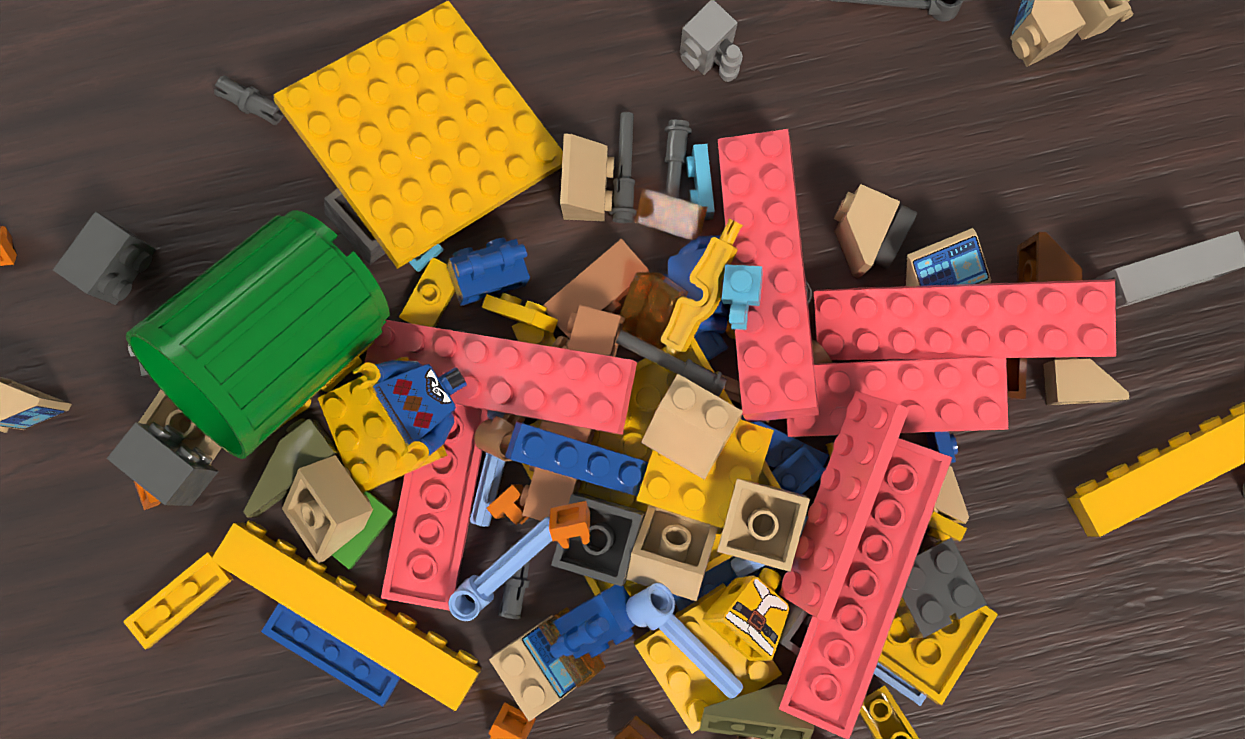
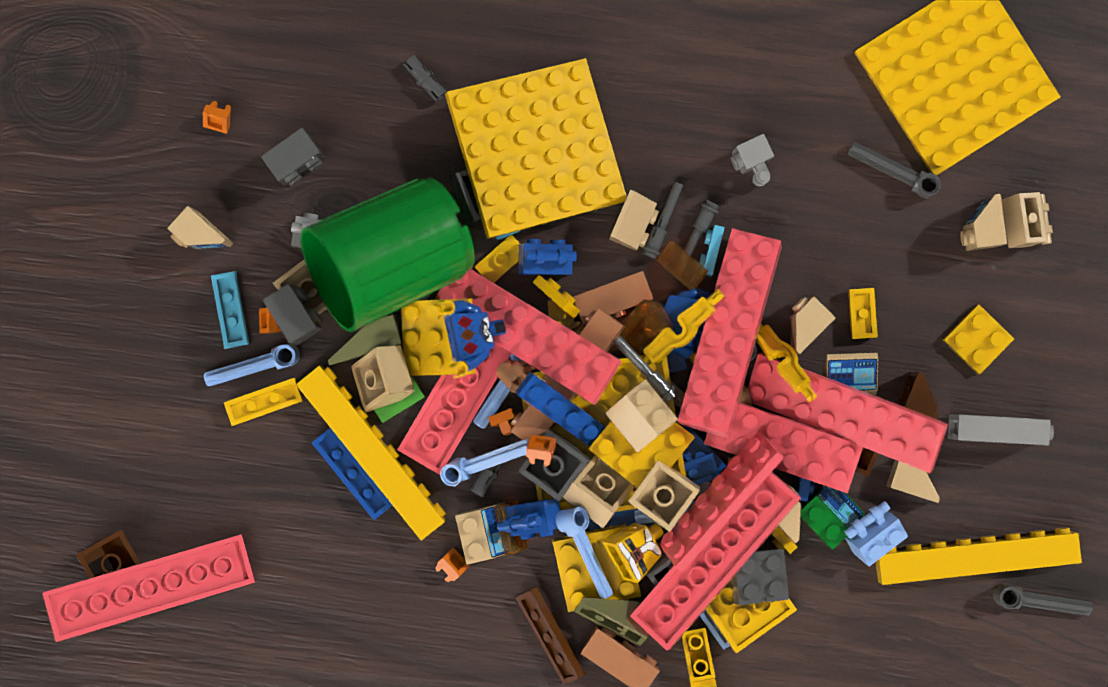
camera: 20 degrees right, 5 degrees up
(94, 493) = (230, 309): none -> medium azure tile
(150, 554) = (252, 365): none -> light blue axle
(741, 288) = (707, 339): medium azure plate -> none
(863, 291) = (787, 368): none -> yellow piece
(895, 236) = (827, 335): dark grey beam -> none
(928, 191) = (862, 313): none -> yellow plate
(993, 469) = (830, 514): none -> green slope
(1063, 472) = (875, 534): none -> light blue brick
(1089, 171) = (978, 339): none -> yellow plate

